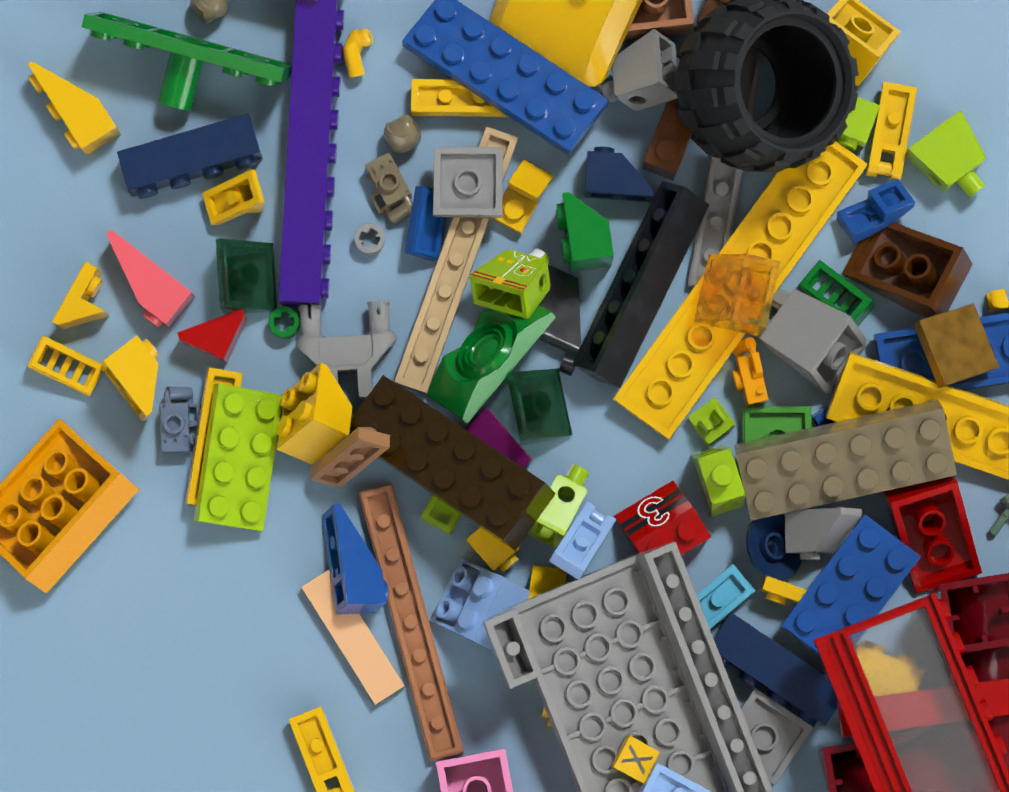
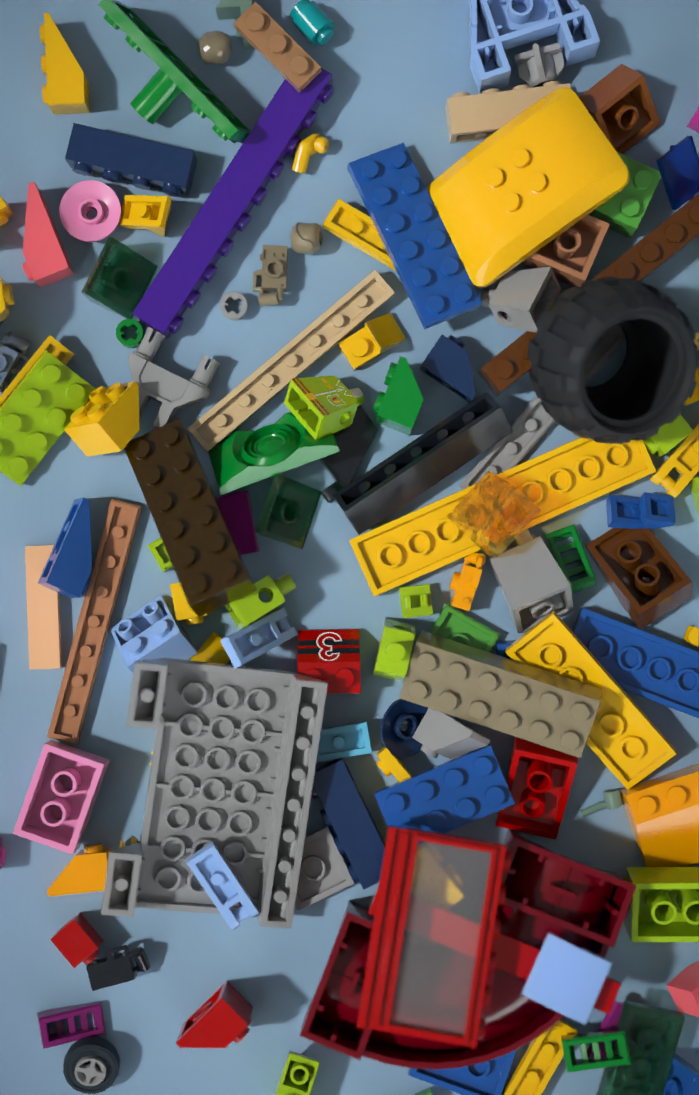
camera: 30 degrees right, 5 degrees up
(176, 210) = (80, 200): none -> bright pink dish
(216, 336) = (71, 314): red slope -> none
(350, 456) = (115, 468): medium nougat plate -> none
(424, 229) = (284, 319): blue tile -> none
(468, 182) = (334, 304): light grey plate -> none
(635, 759) = (199, 832): yellow tile -> none
(956, 345) = (640, 654): pearl gold tile -> none

